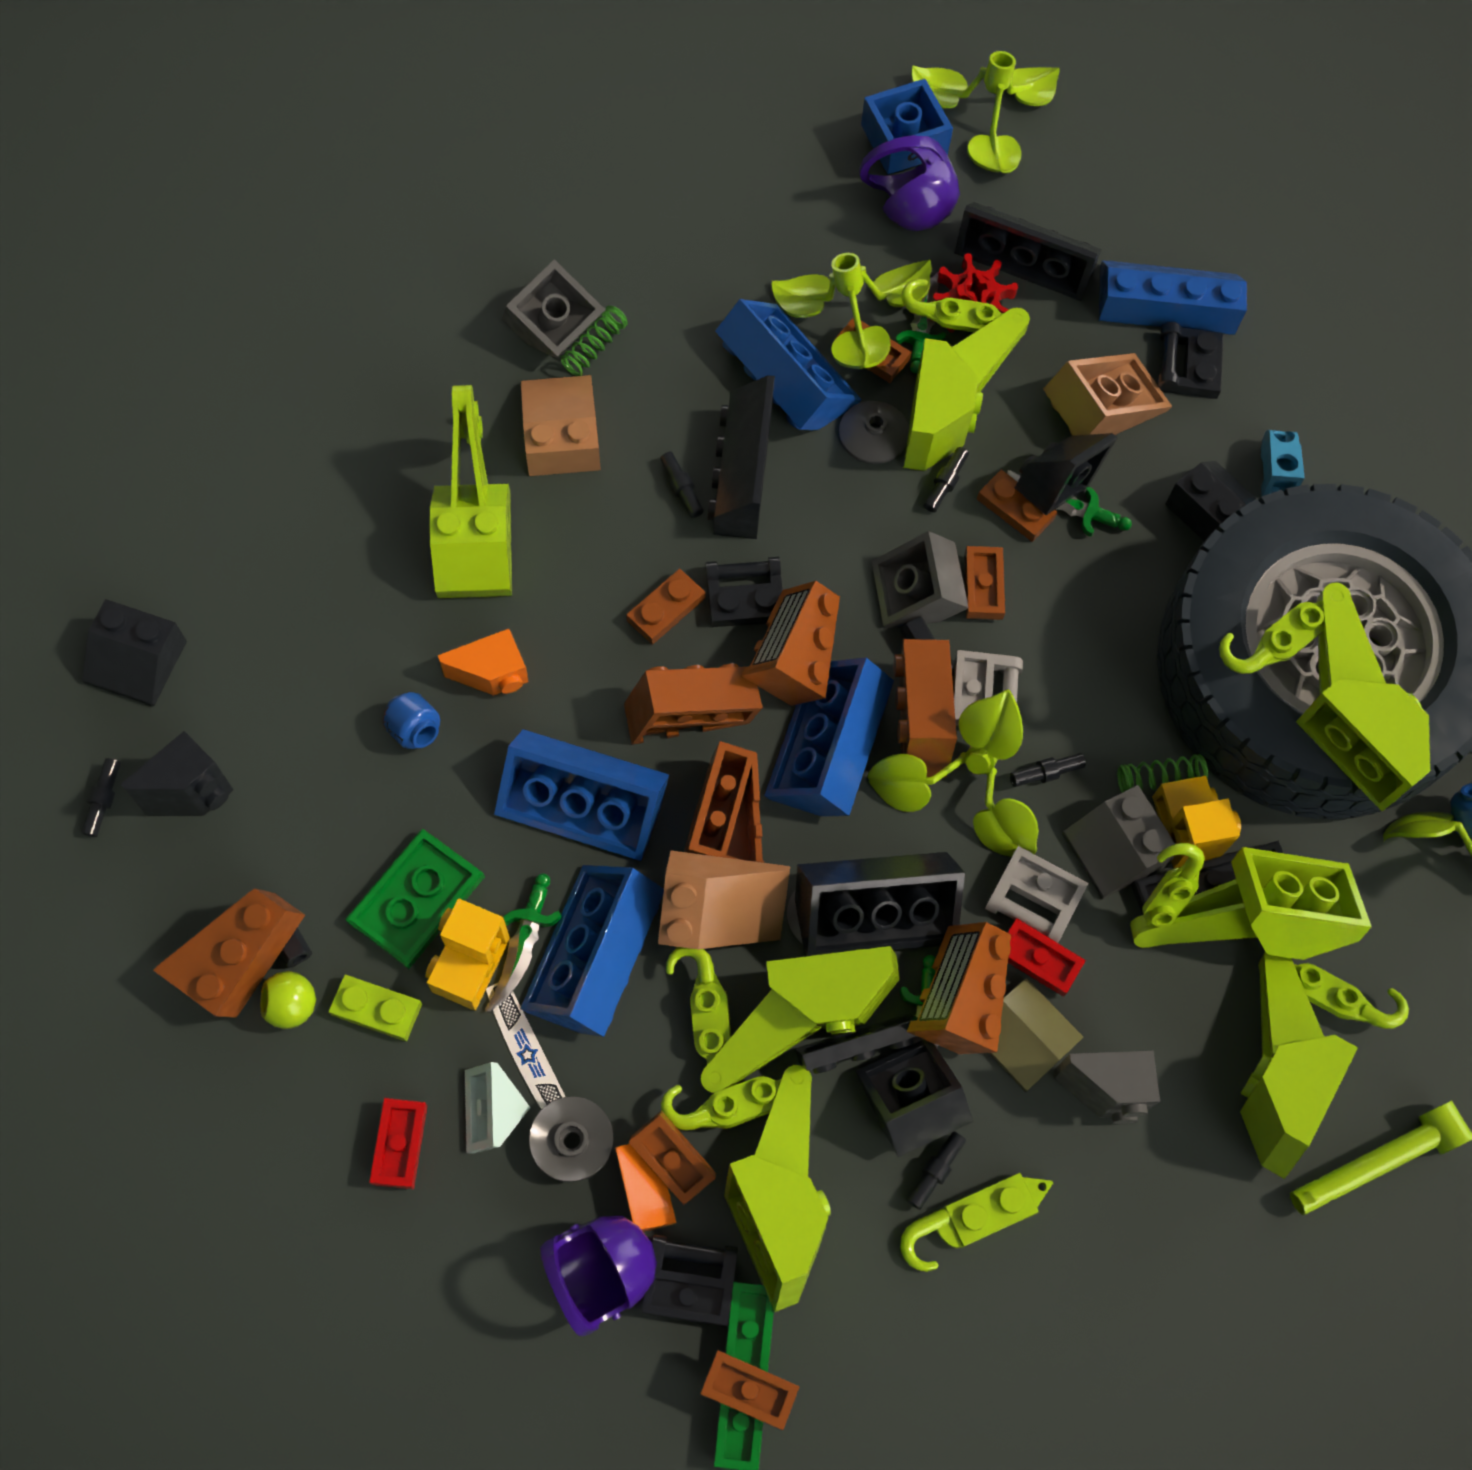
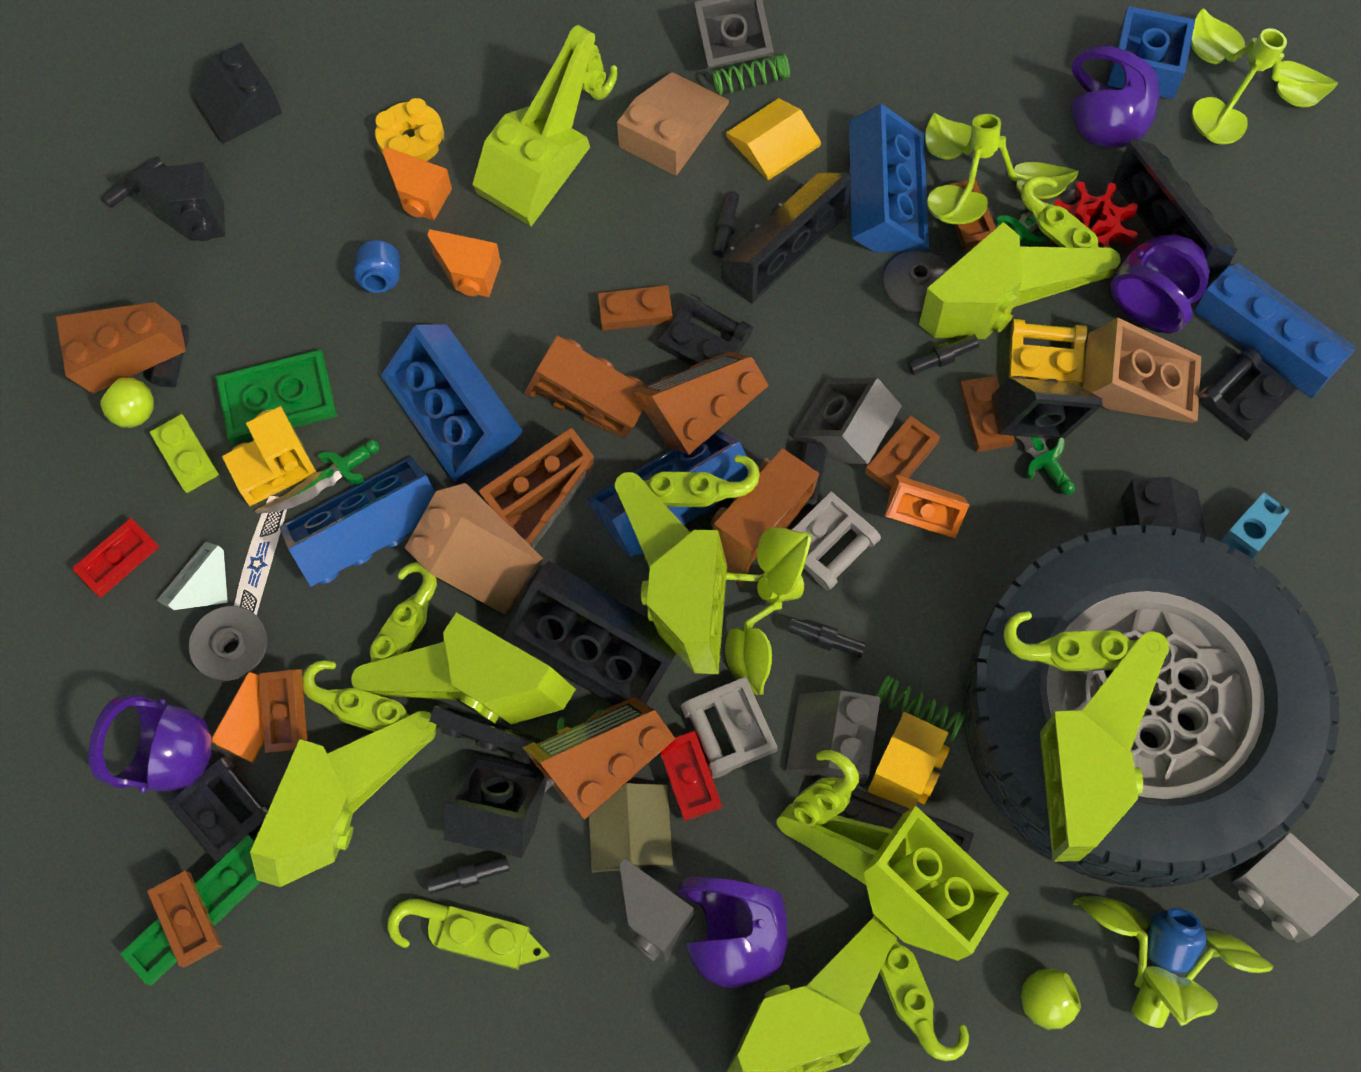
camera: 45 degrees right, 0 degrees up
(325, 563) = (406, 116): none -> yellow plate
(379, 624) = (418, 183): none -> orange slope
(657, 384) = (774, 138): none -> yellow slope
(926, 791) = (685, 568): none -> lime slope
(1026, 436) = (1047, 362): none -> yellow plate
(1037, 611) = (926, 506): none -> orange slope
(1067, 312) = (1161, 282): none -> dark purple piece
(1190, 1045) = (743, 932): none -> dark purple piece
(1431, 921) = (1050, 998): none -> lime piece

